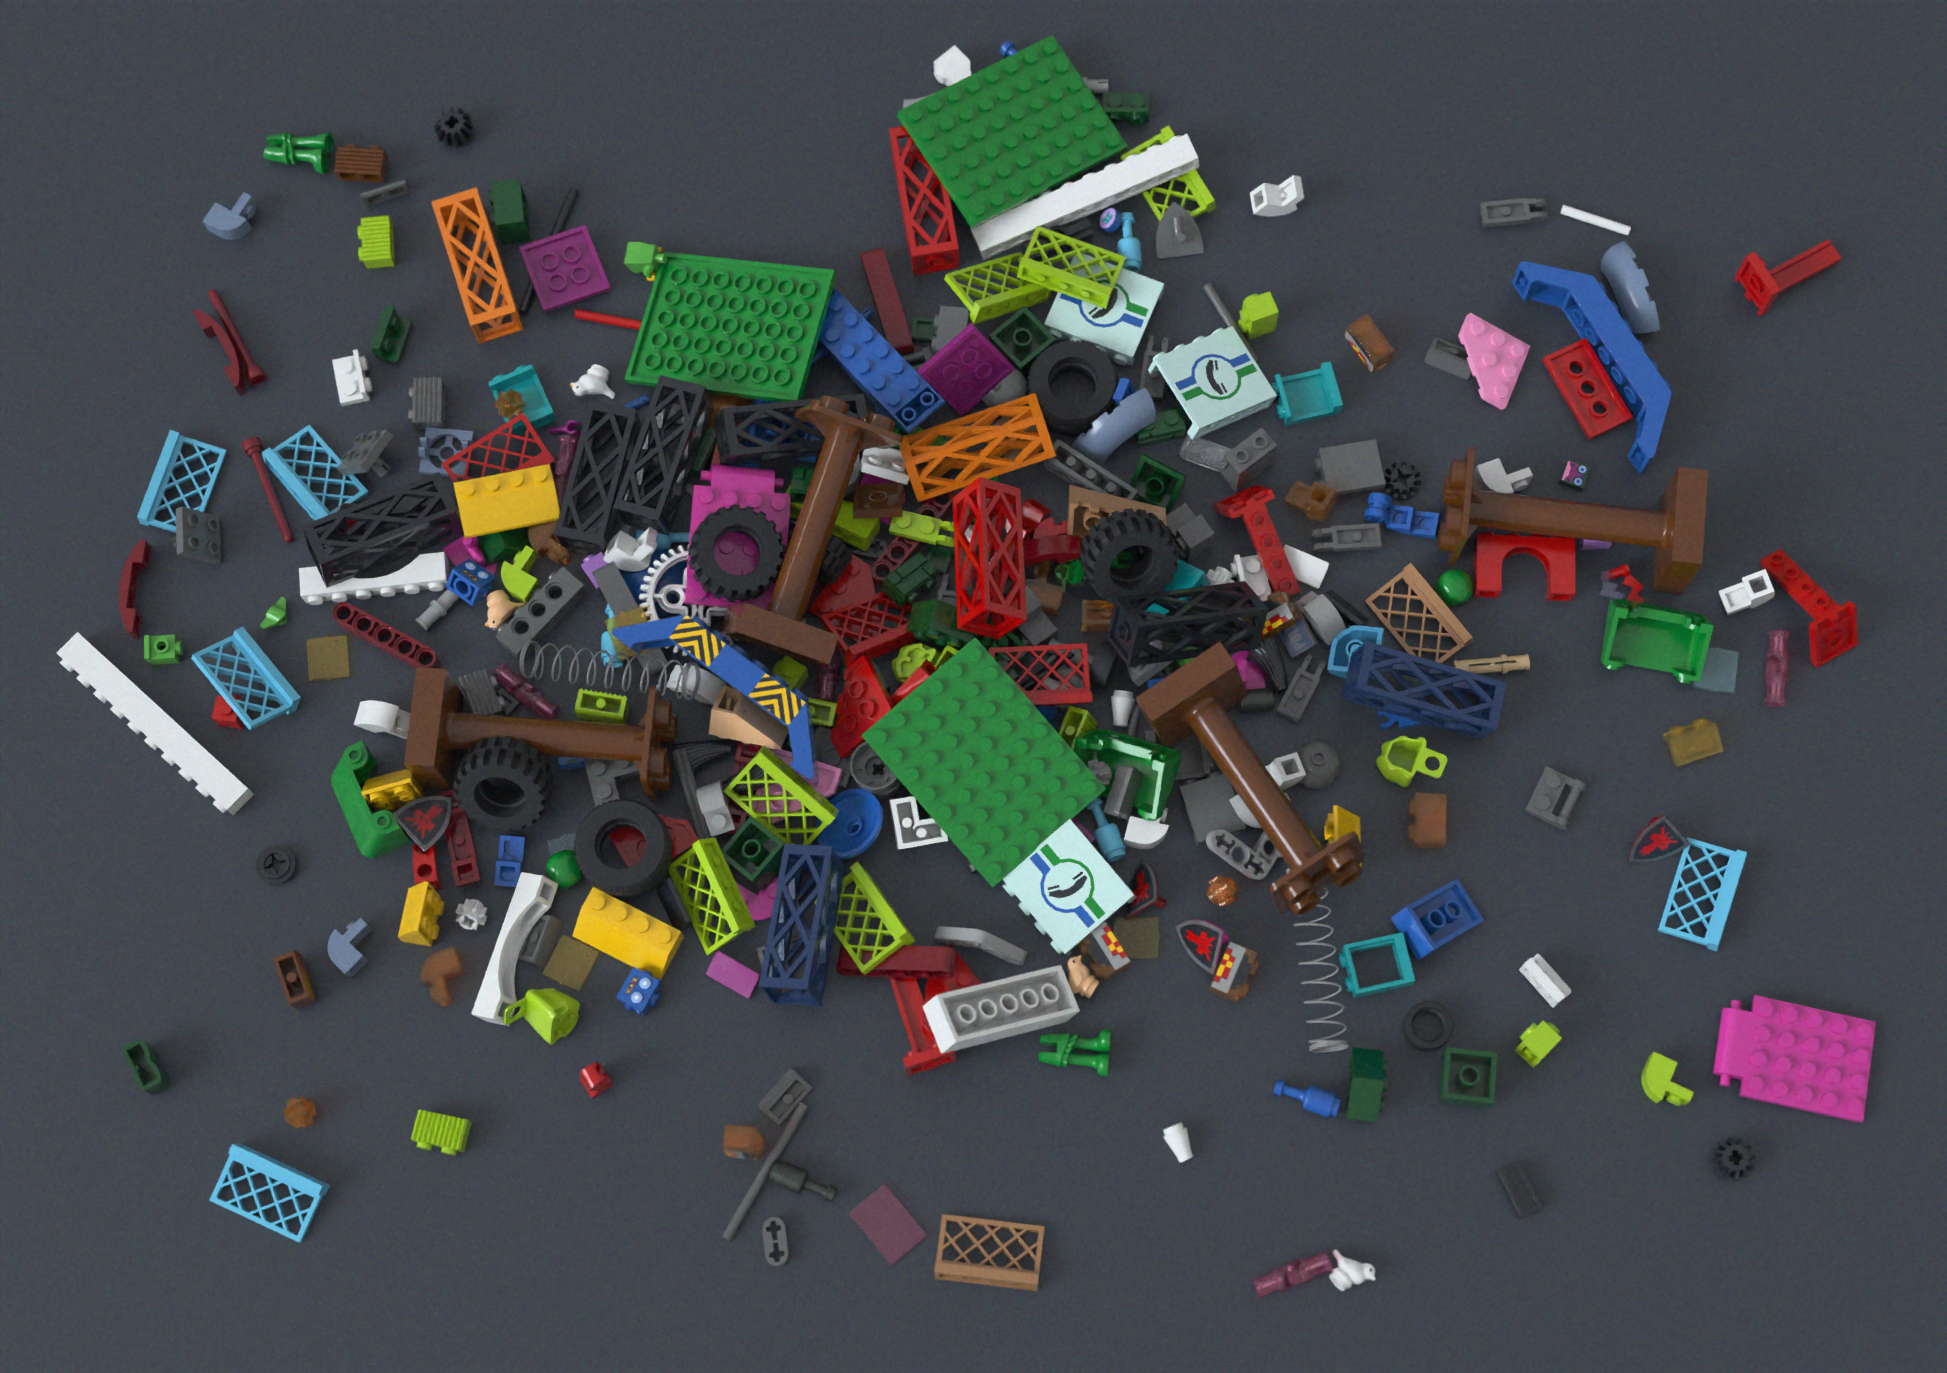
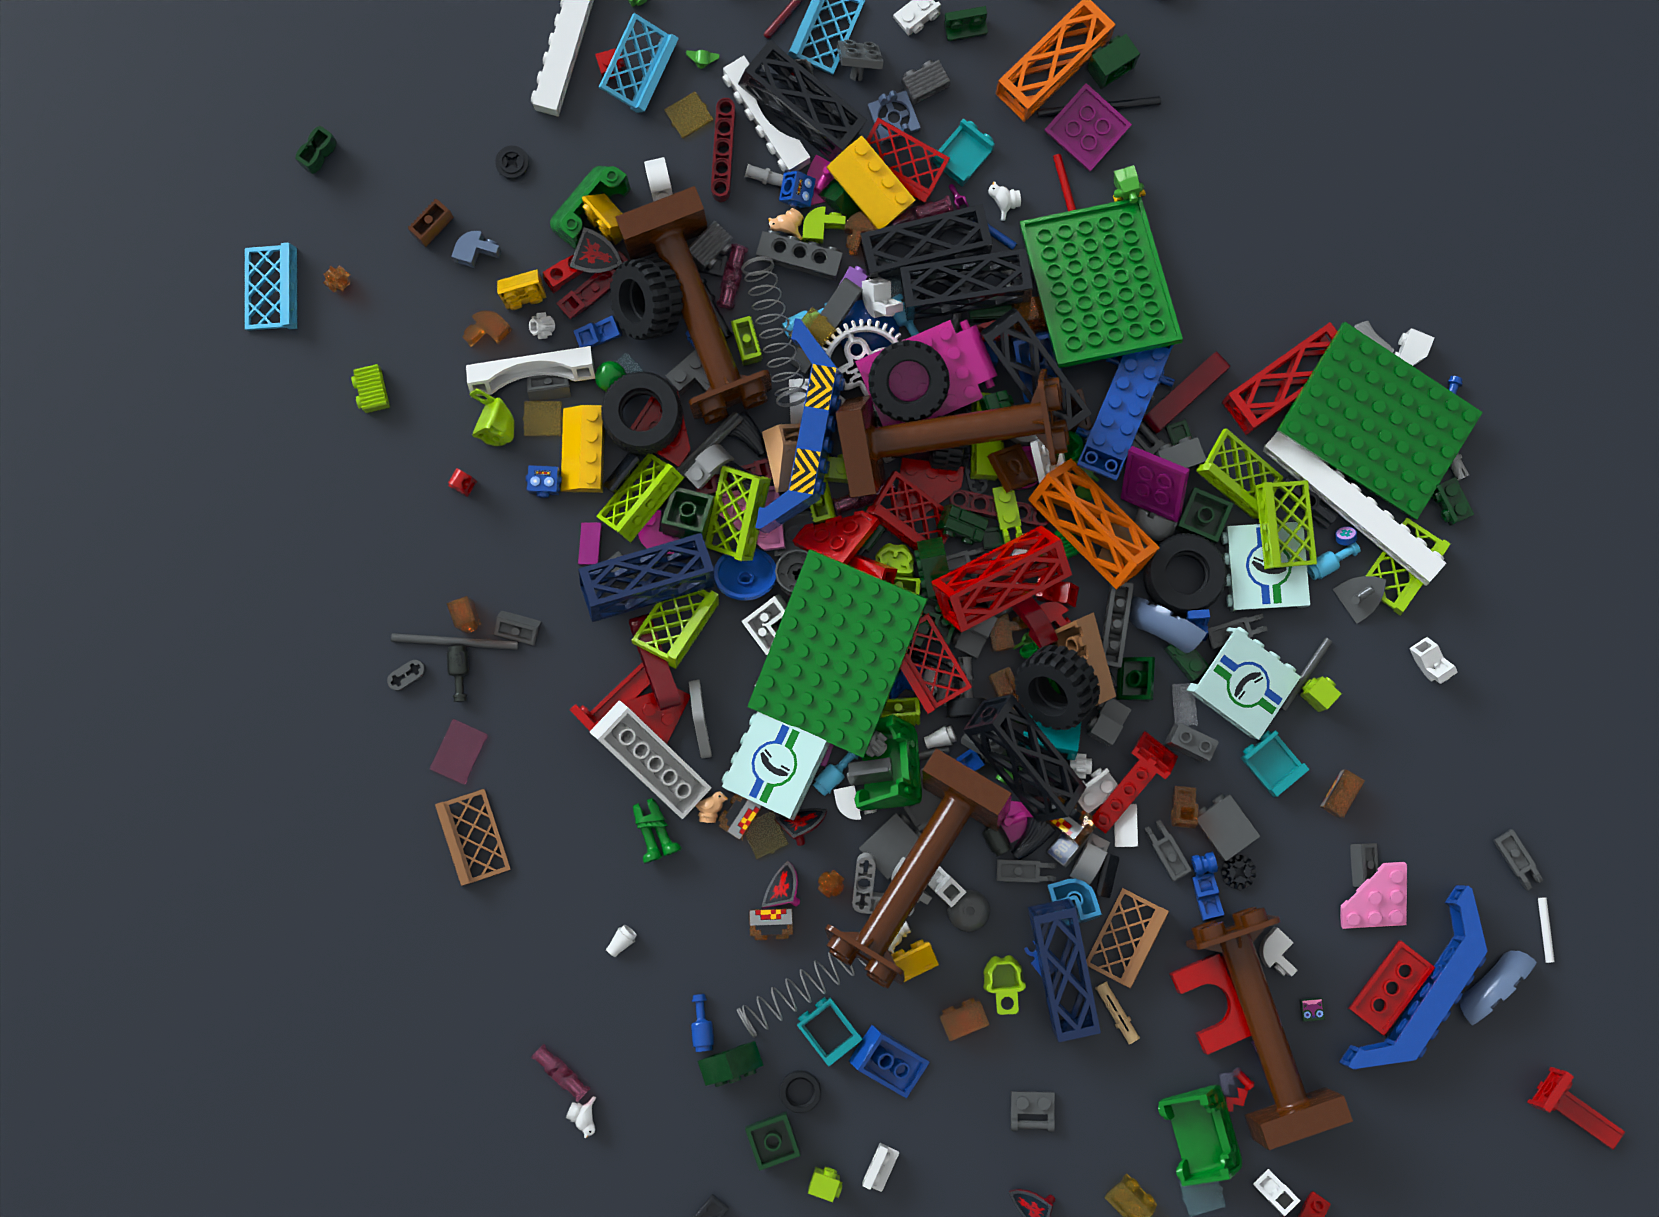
camera: 60 degrees right, 10 degrees up
(510, 404) = (952, 149): clear orange gear -> none
(1454, 587) = (1168, 954): green hair -> none

